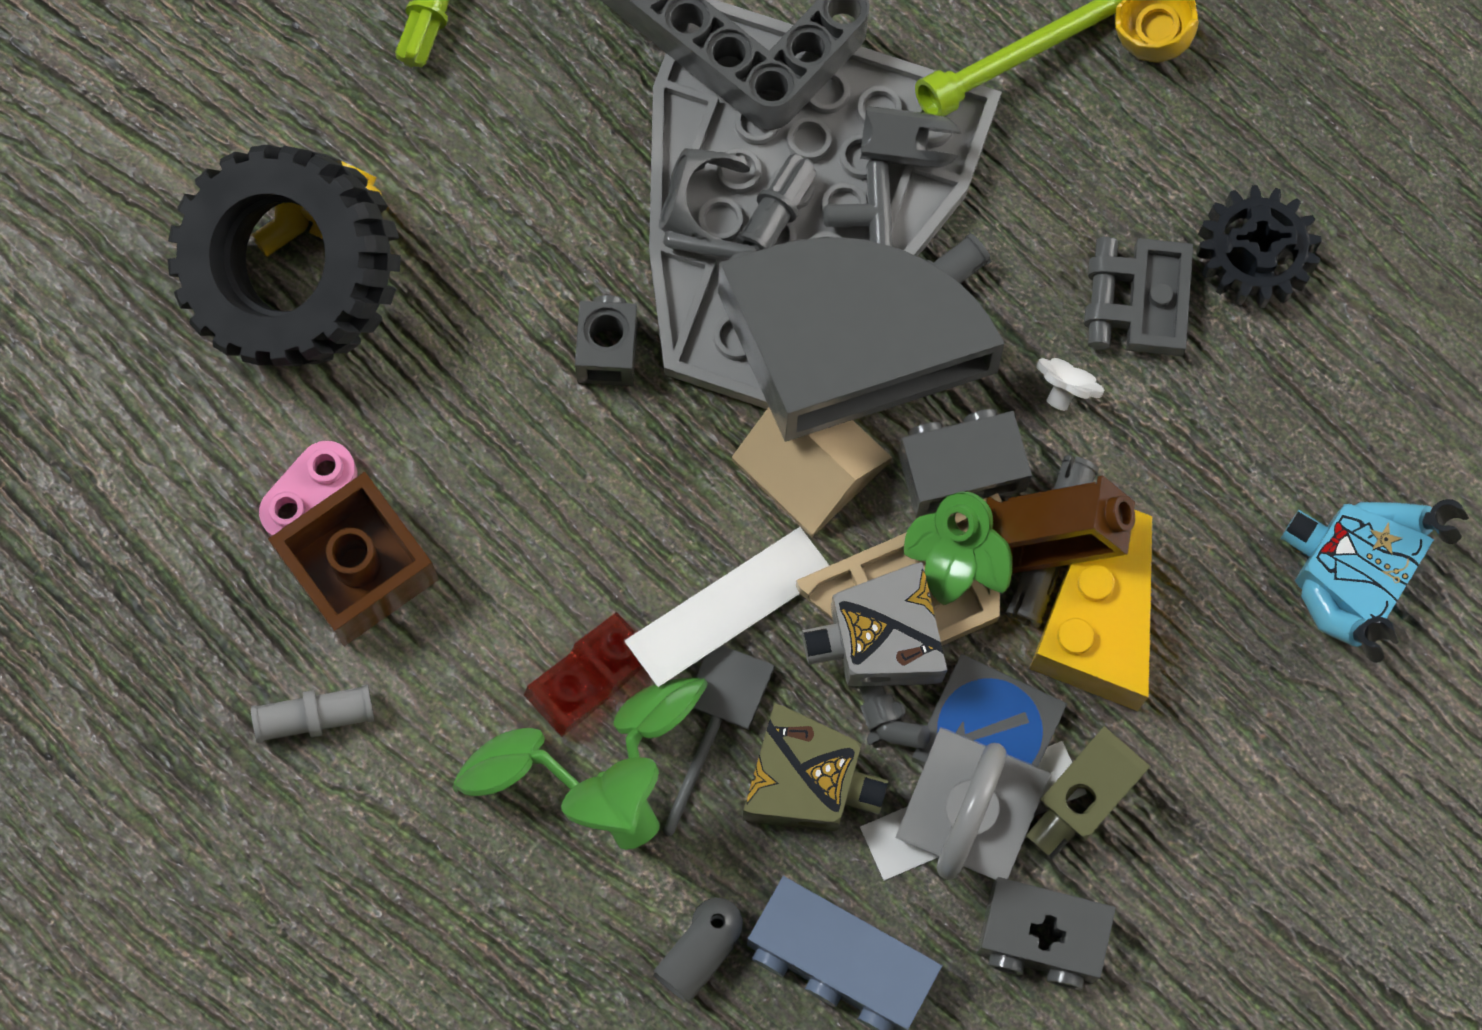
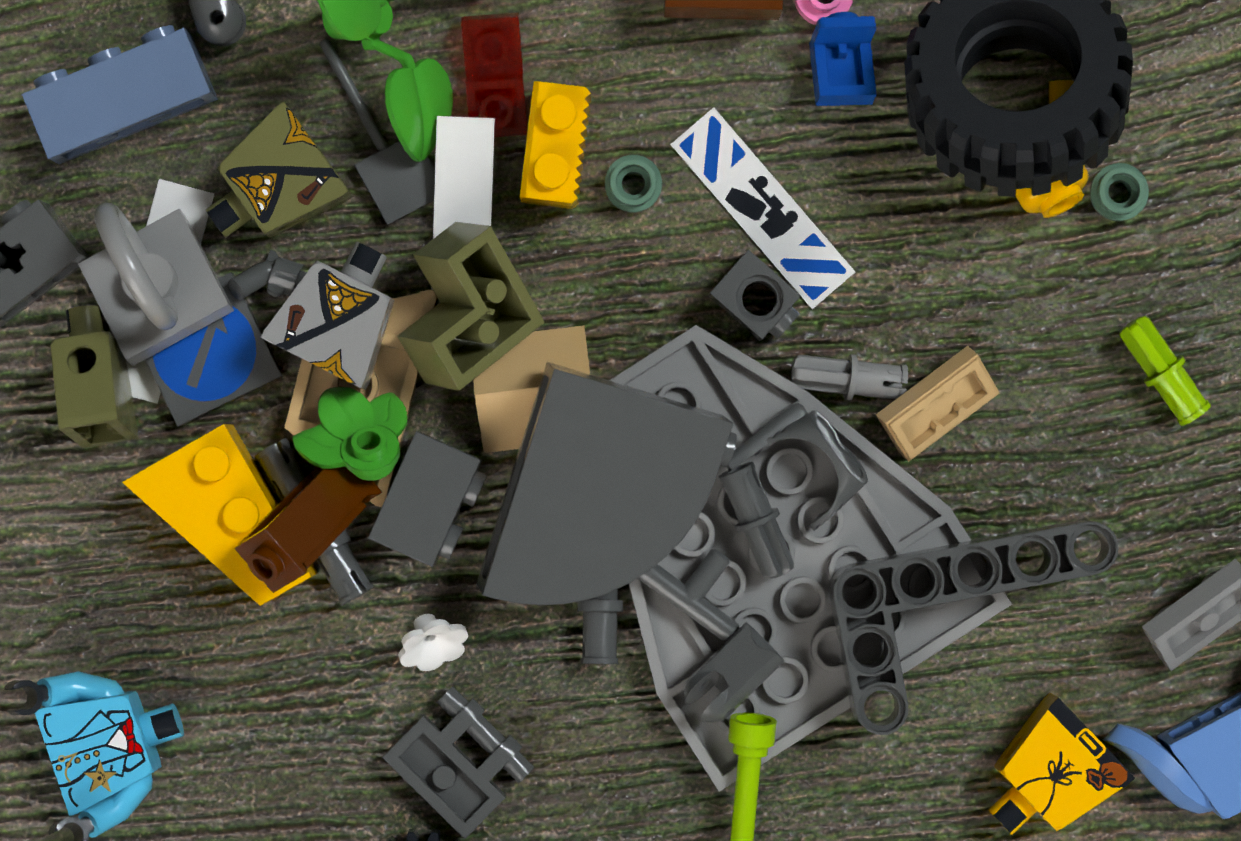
camera: 125 degrees right, 15 degrees up
(316, 129) = (1131, 179): none -> sand green plate
(369, 413) = (843, 60): none -> blue bracket
(531, 397) = (762, 208): none -> white sticker
(581, 152) = (938, 403): none -> tan plate
(586, 486) = (633, 165): none -> sand green plate
(609, 577) = (555, 145): none -> yellow brick
(612, 230) = (849, 376): none -> light grey axle
(789, 528) = (480, 307): none -> olive brick

